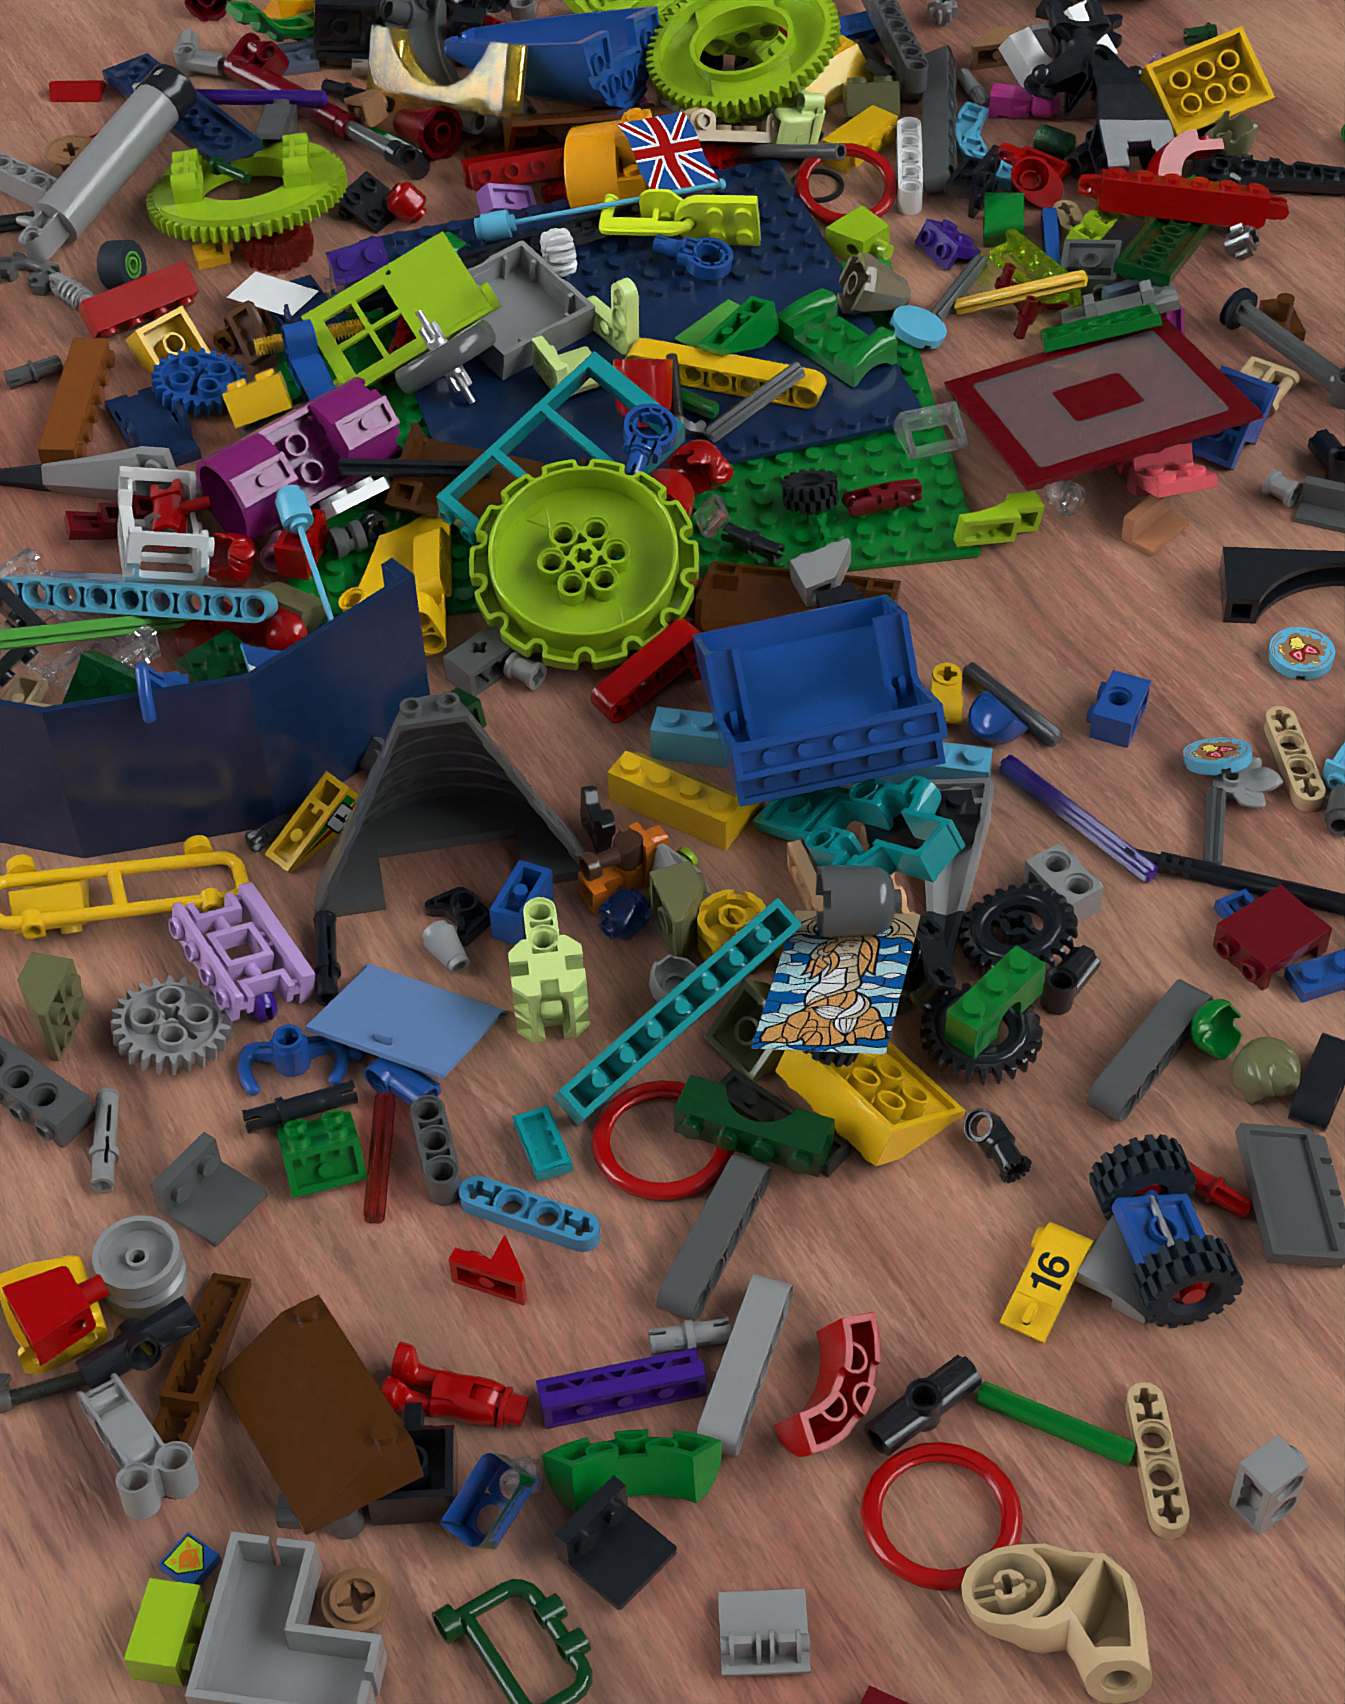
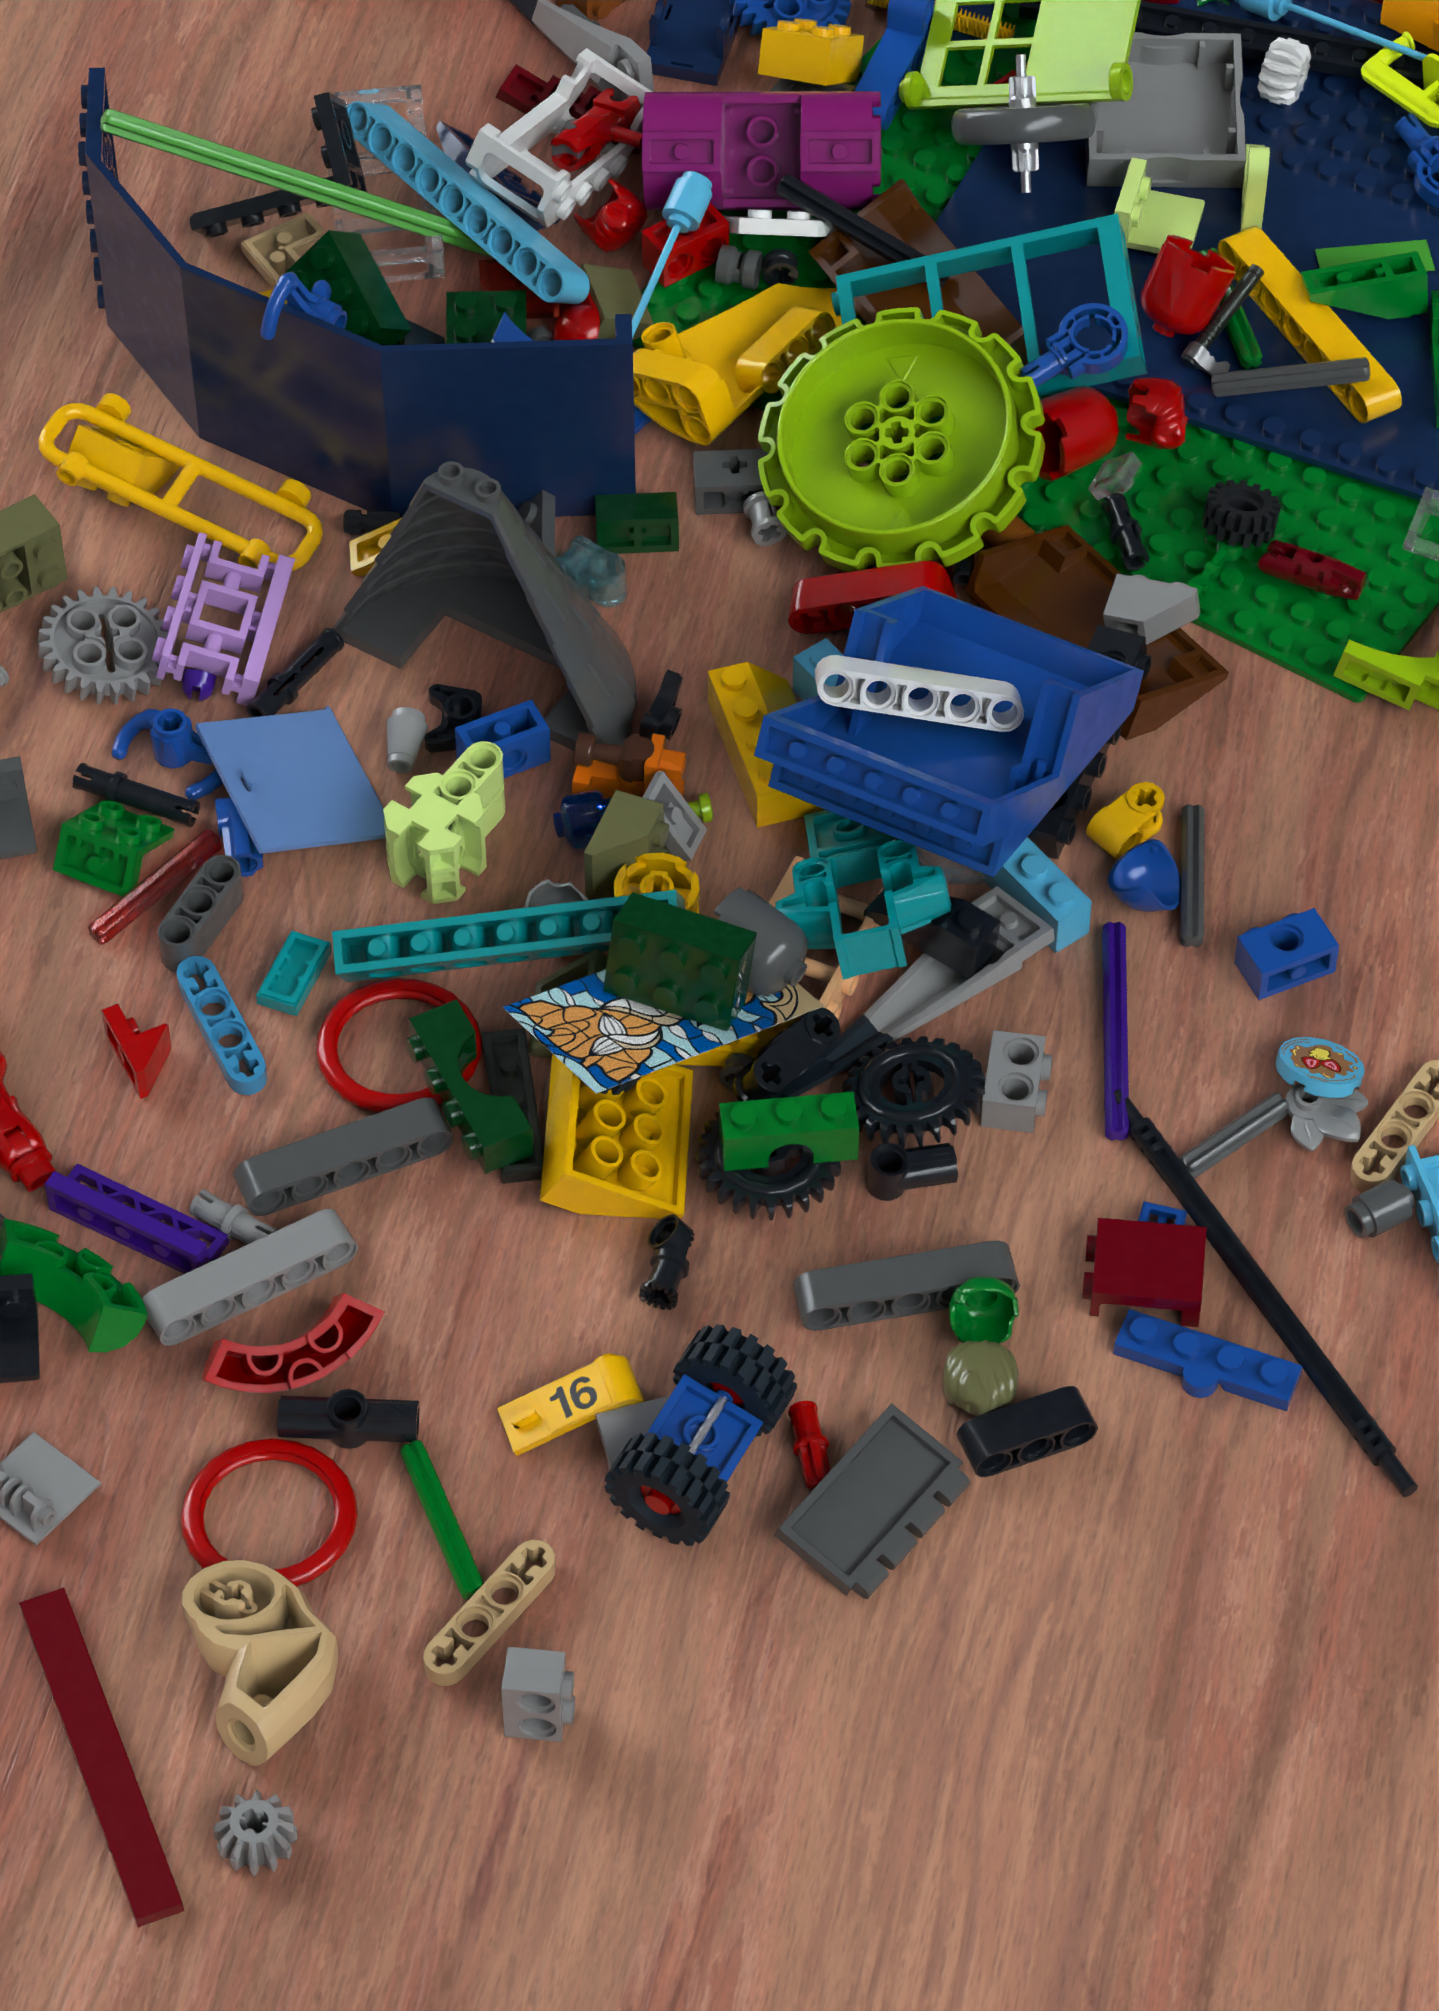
camera: 40 degrees right, 5 degrees up
(781, 686) = (904, 679): none -> white beam
(833, 938) = (679, 961): none -> dark green brick

